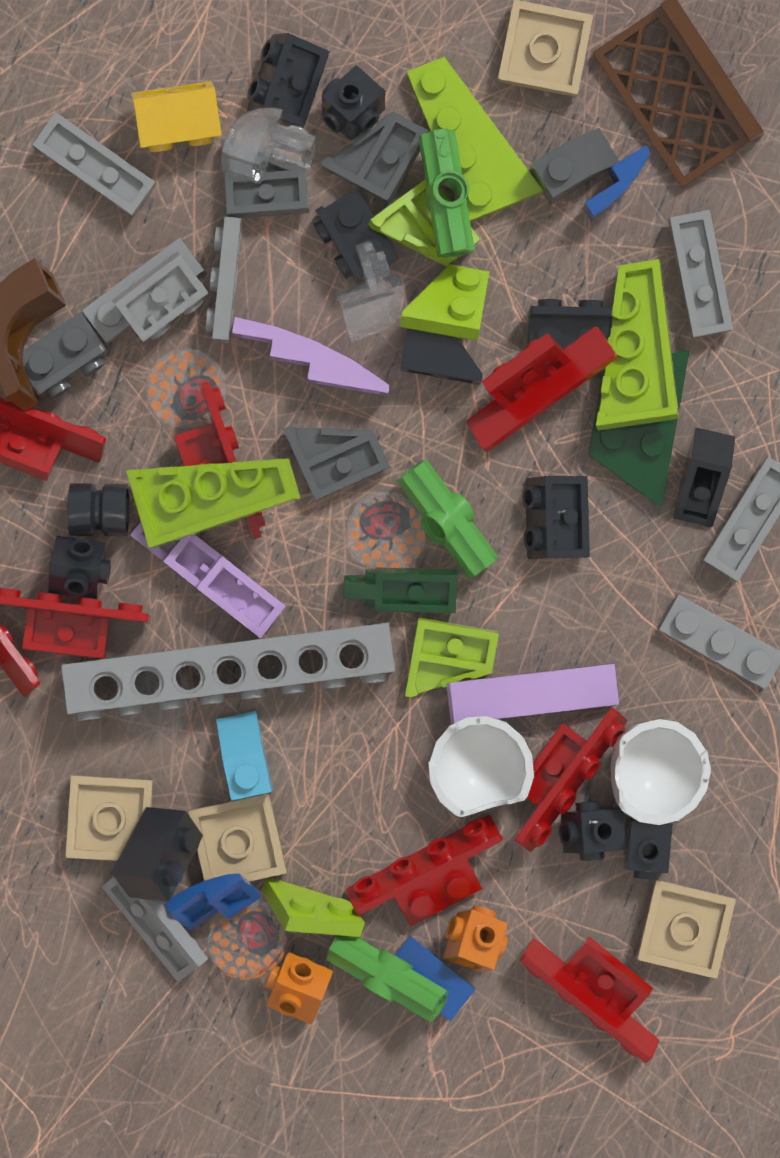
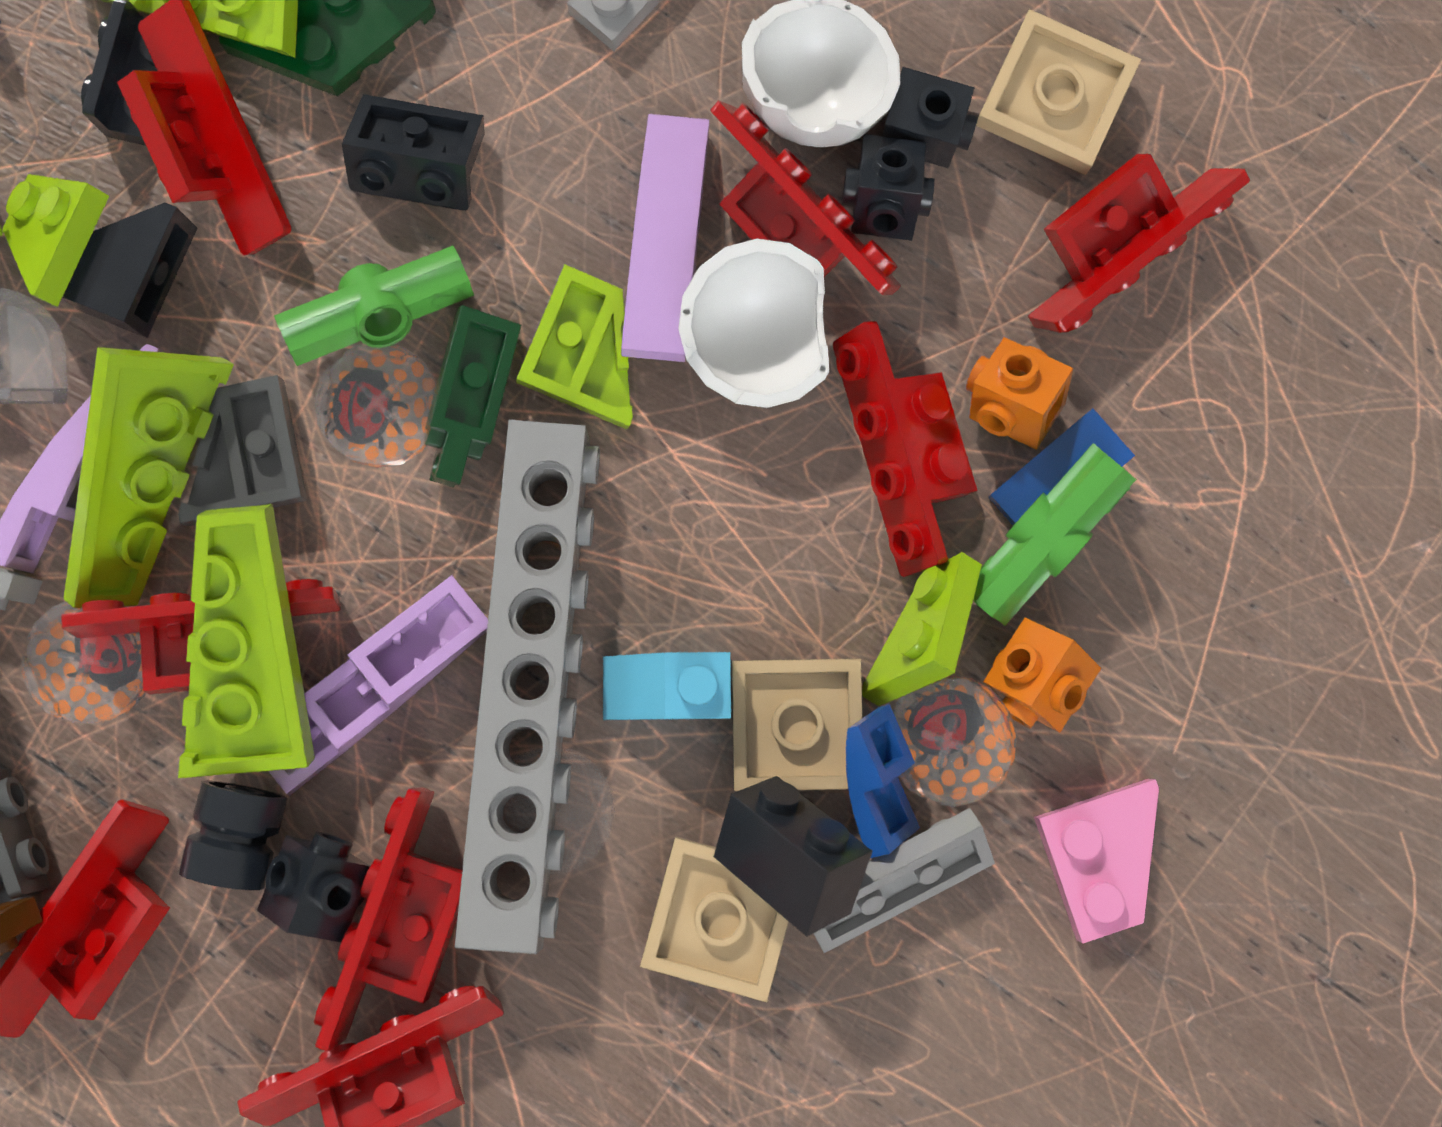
camera: 75 degrees left, 5 degrees down
(195, 1049) = (1103, 857): none -> bright pink wing
(309, 397) = (133, 464): none -> lime wing

